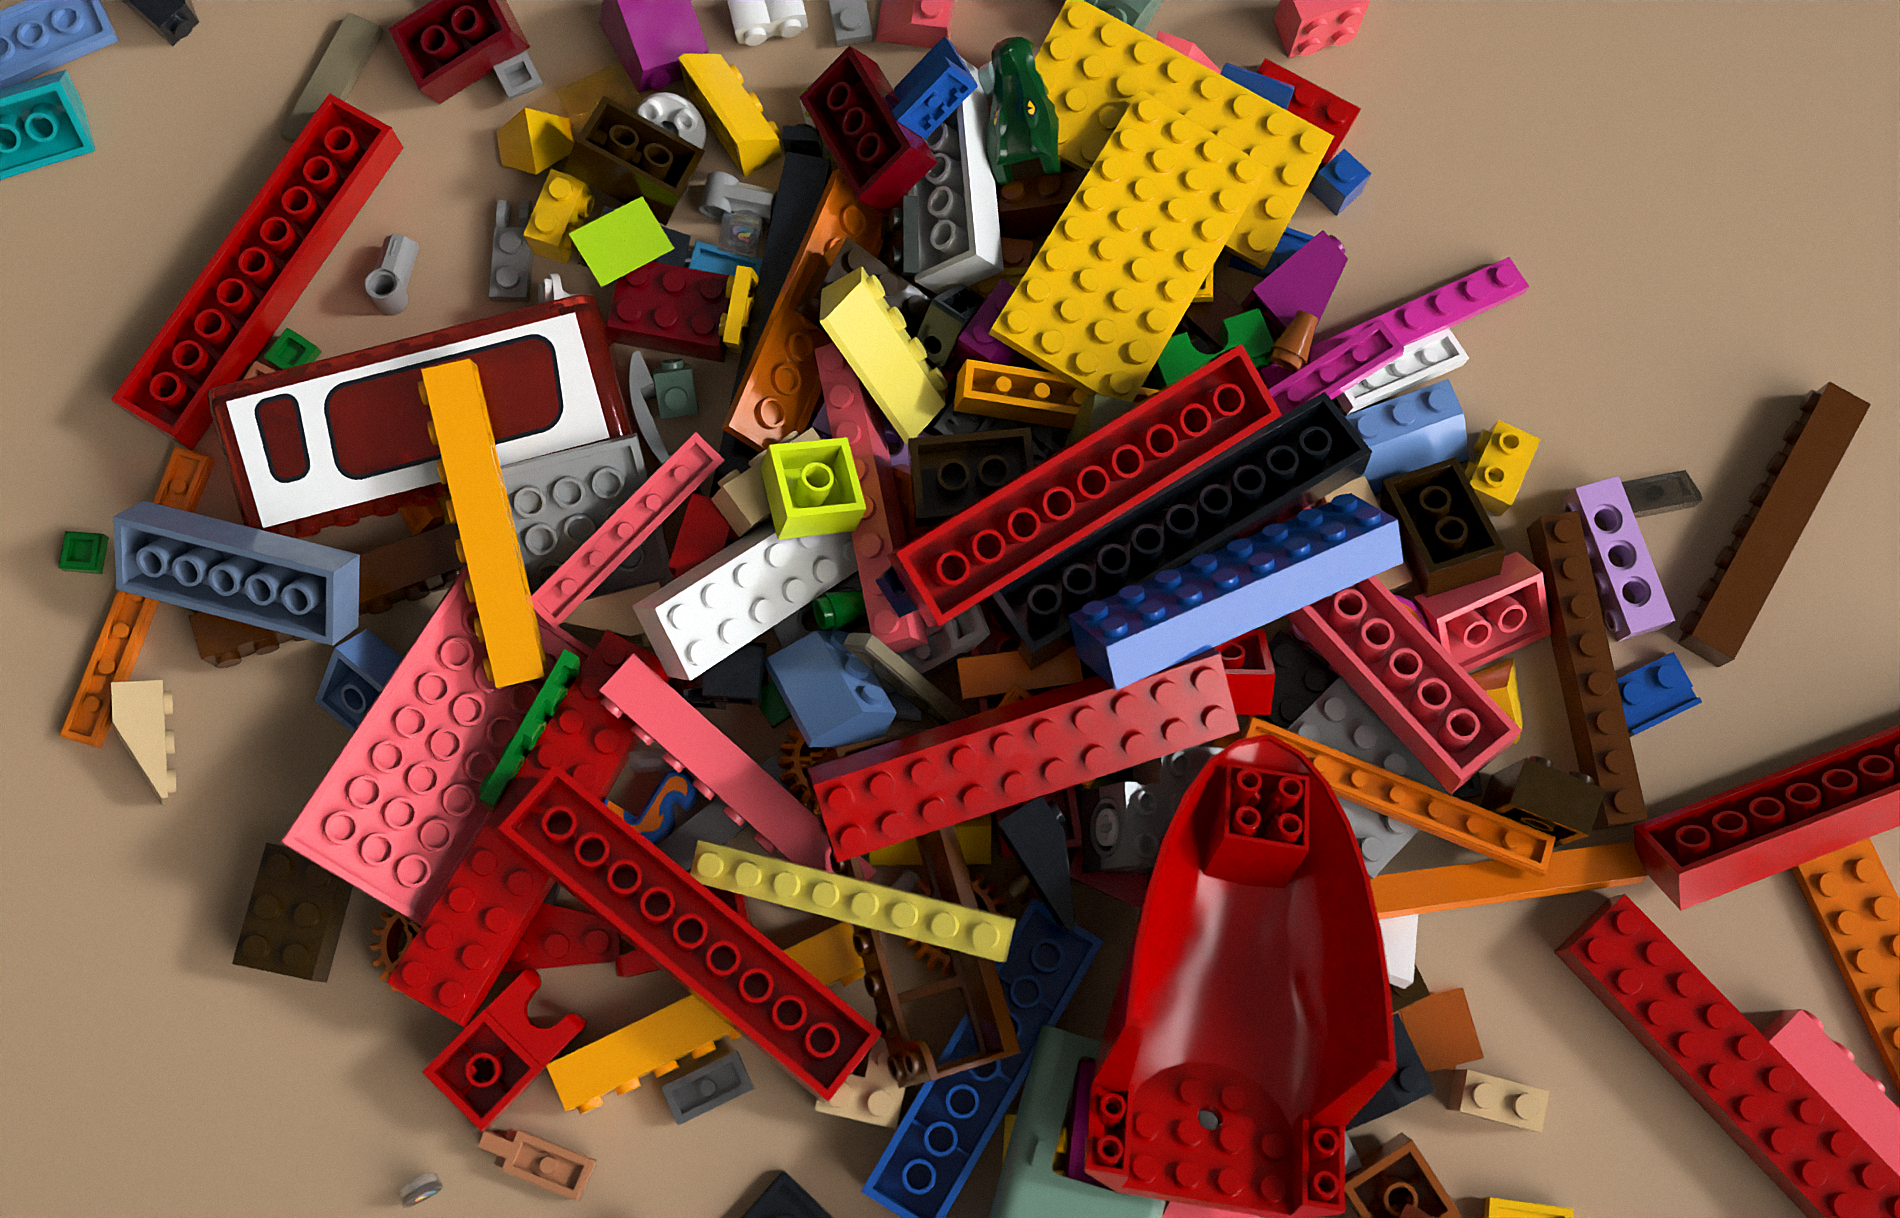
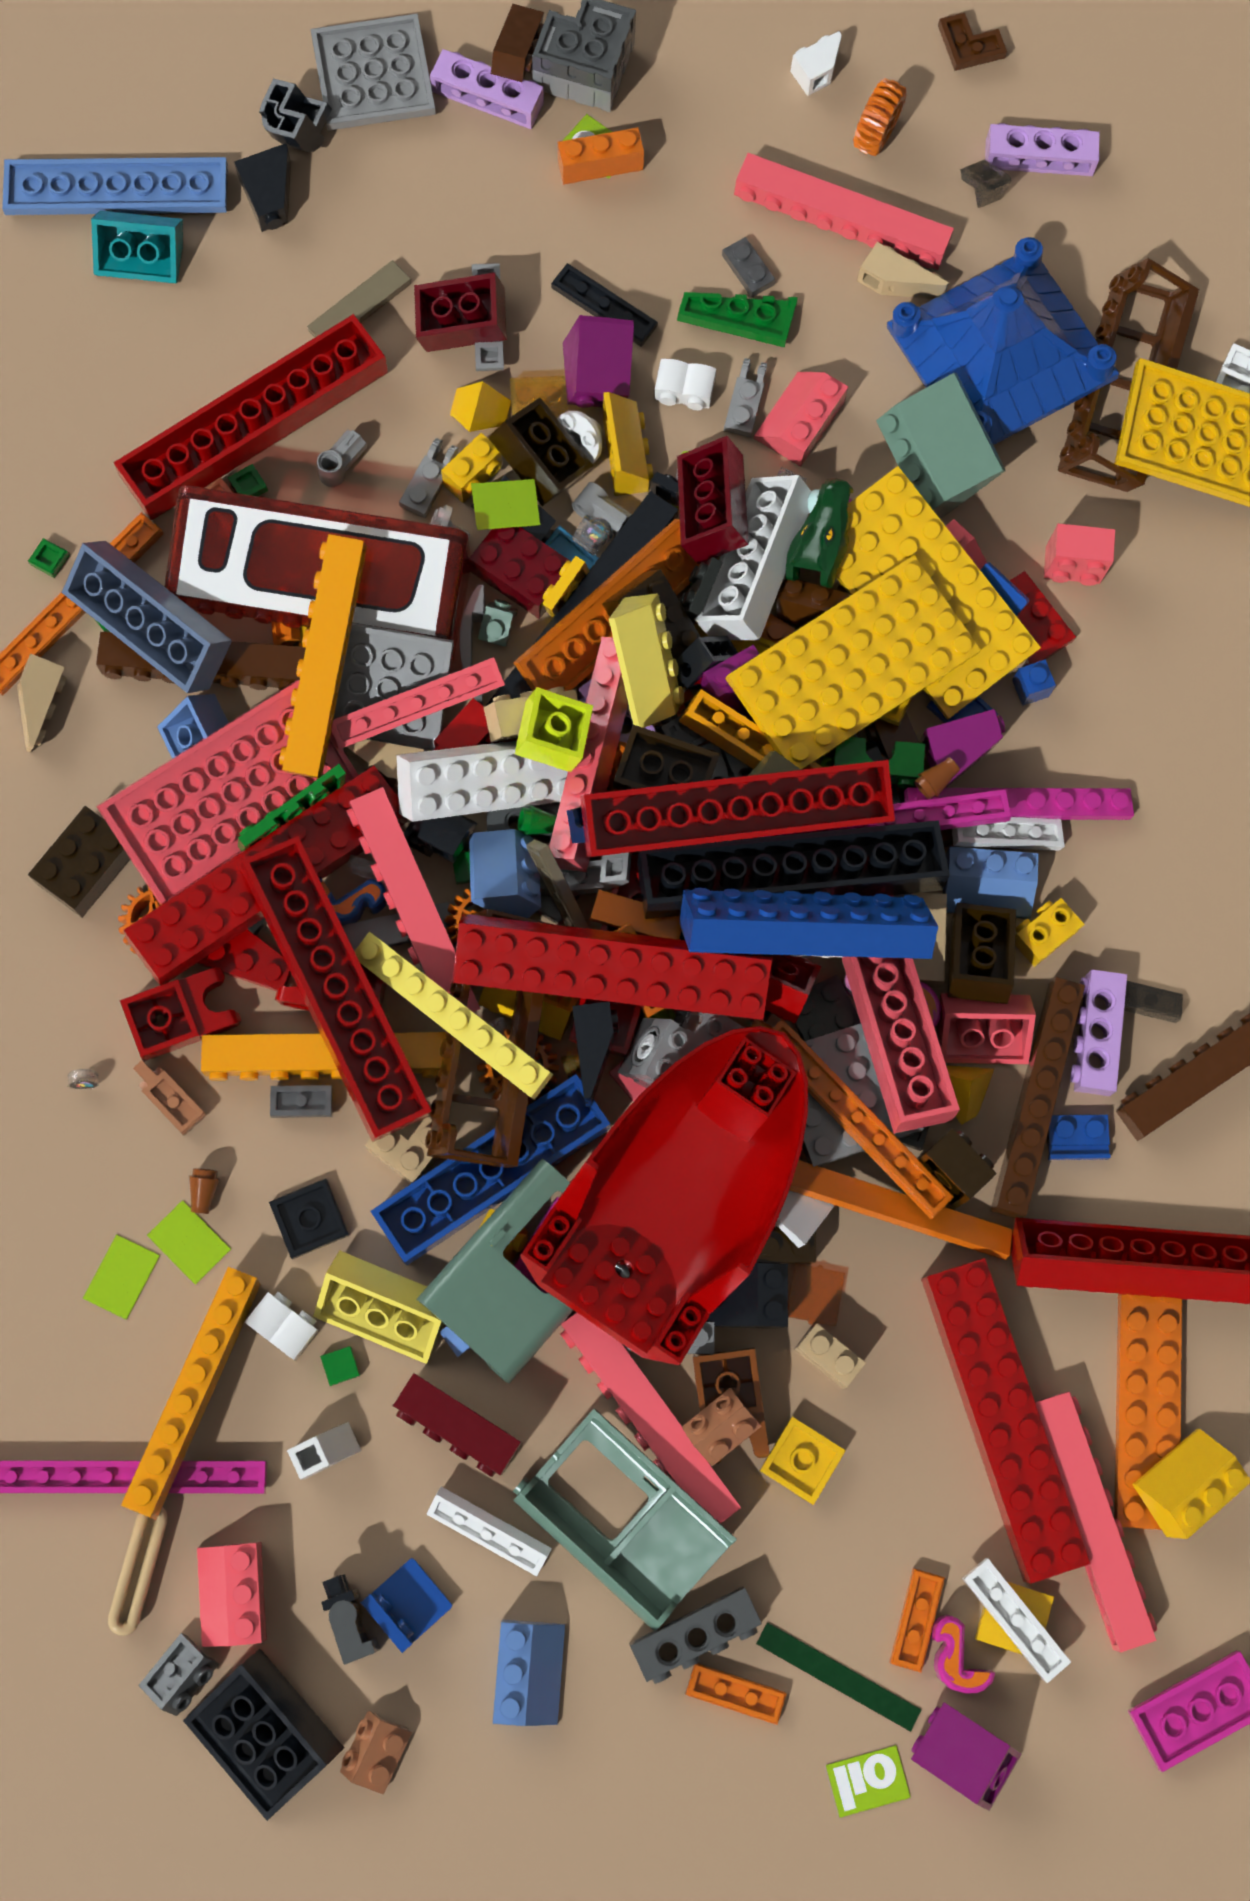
camera: 20 degrees right, 0 degrees up
(933, 89) = (769, 492): blue bracket -> none

